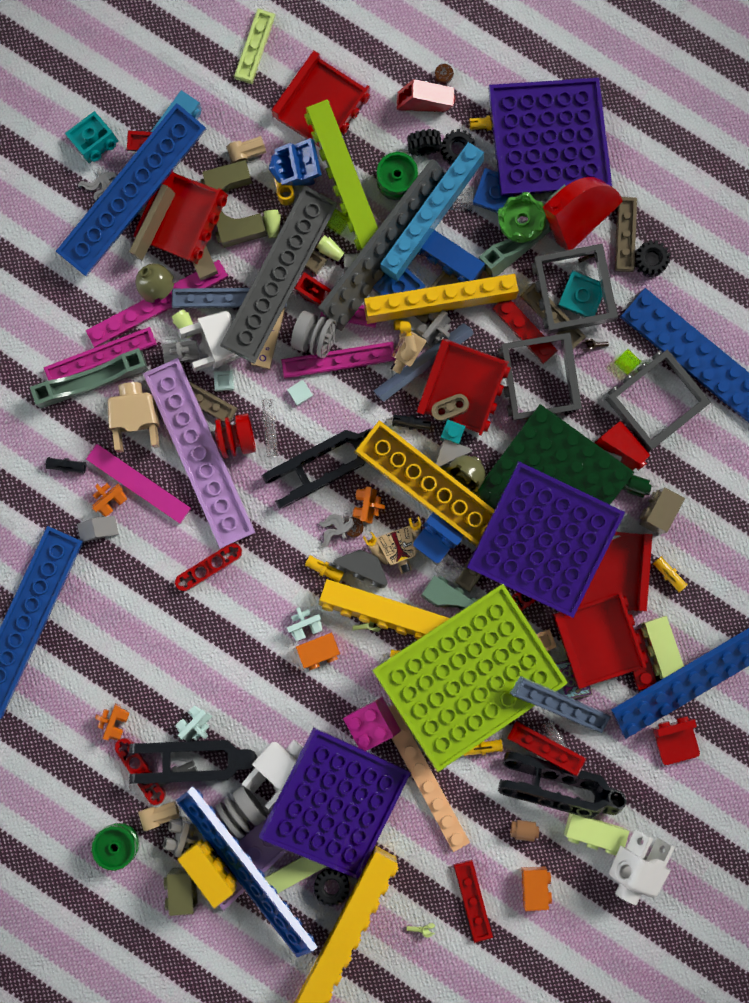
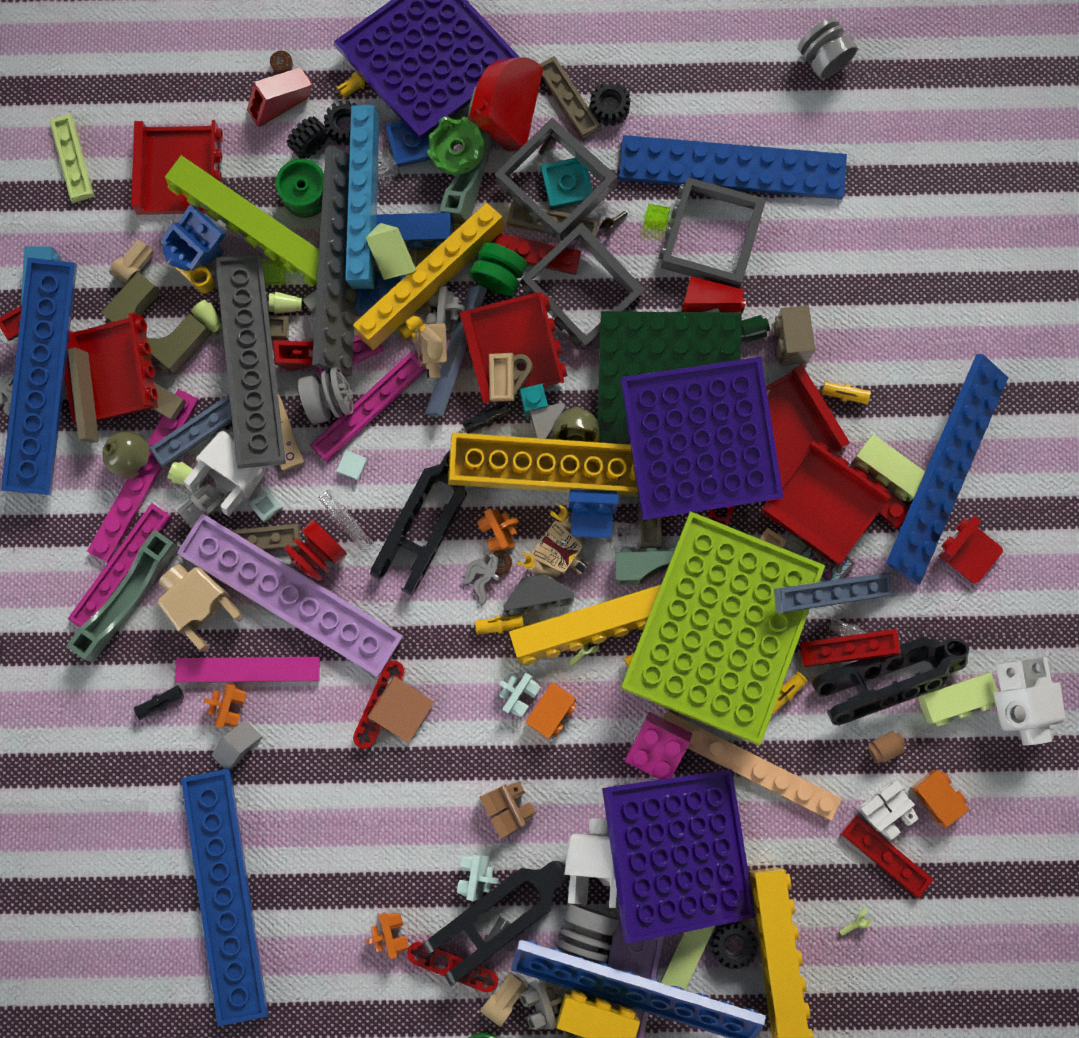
camera: 30 degrees left, 5 degrees down
(220, 580) = (400, 709): none -> nougat tile
(248, 686) = (512, 818): none -> medium nougat hips
(423, 264) = (390, 251): none -> yellowish green slope
(440, 403) = (501, 377): none -> tan tile
(490, 325) = (498, 269): none -> green wheel
(504, 871) = (886, 807): none -> white hips

